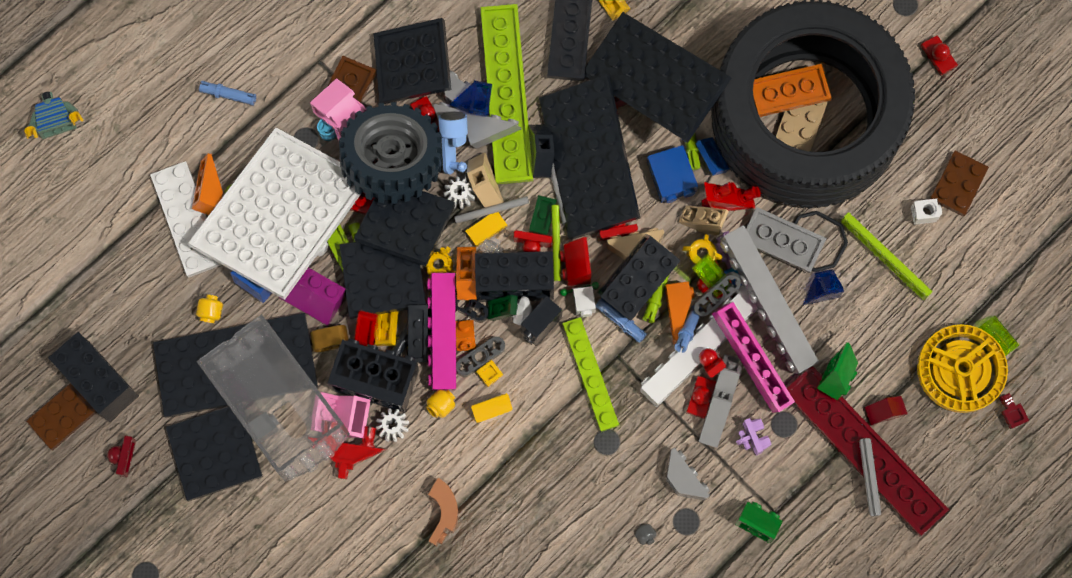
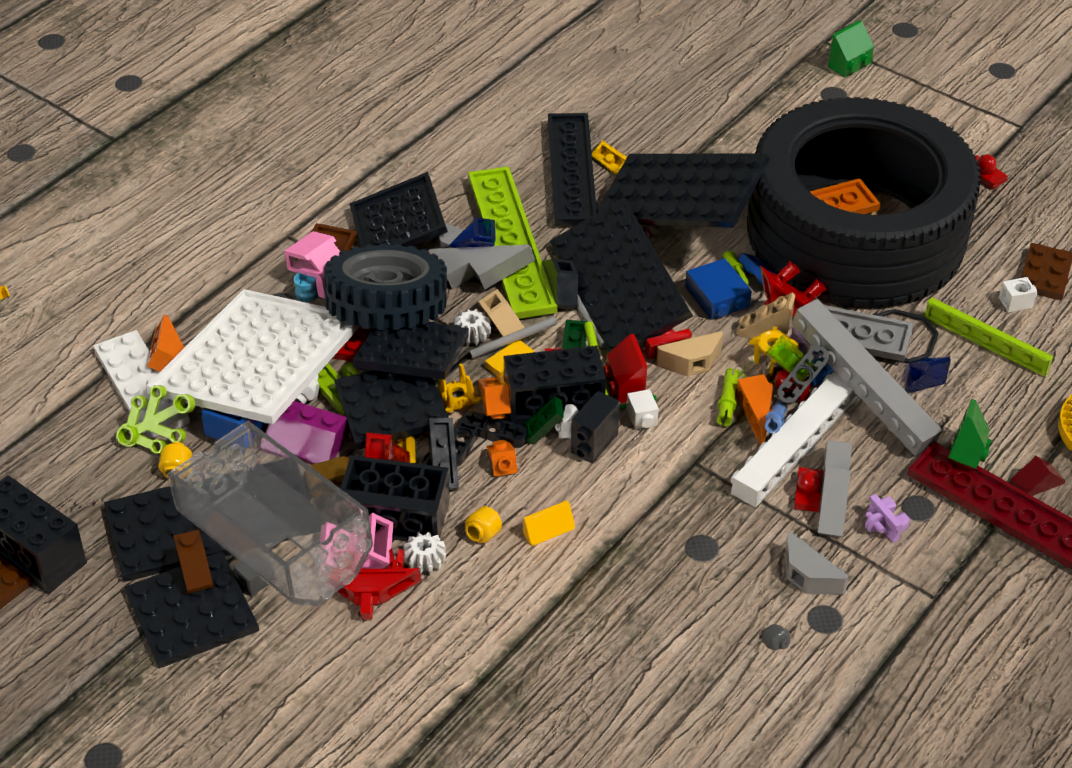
camera: 10 degrees left, 30 degrees down
(122, 456) = (67, 622): dark red tile -> none
(176, 276) = (152, 420): none -> lime plant
(216, 419) = (193, 561): none -> reddish brown slope
(219, 90) = (176, 266): medium blue pin -> none
(380, 337) = (396, 453): none -> clear red plate
(442, 331) = (474, 448): dark pink brick -> none
(449, 511) = (509, 626): nougat arch -> none
(453, 132) = (457, 254): light blue piece -> none
(489, 373) = (539, 493): yellow tile -> none
(495, 353) = (521, 486): dark grey beam -> none
(590, 374) = (667, 482): lime plate -> none
(625, 324) = (699, 428): medium blue pin -> none
(638, 276) = (704, 365): black brick -> none
(711, 361) = (810, 437): red tile -> none
(753, 357) = (864, 430): dark pink brick -> none
(759, 522) = (918, 603): green slope -> none
(870, 477) = (1043, 538): light grey axle -> none

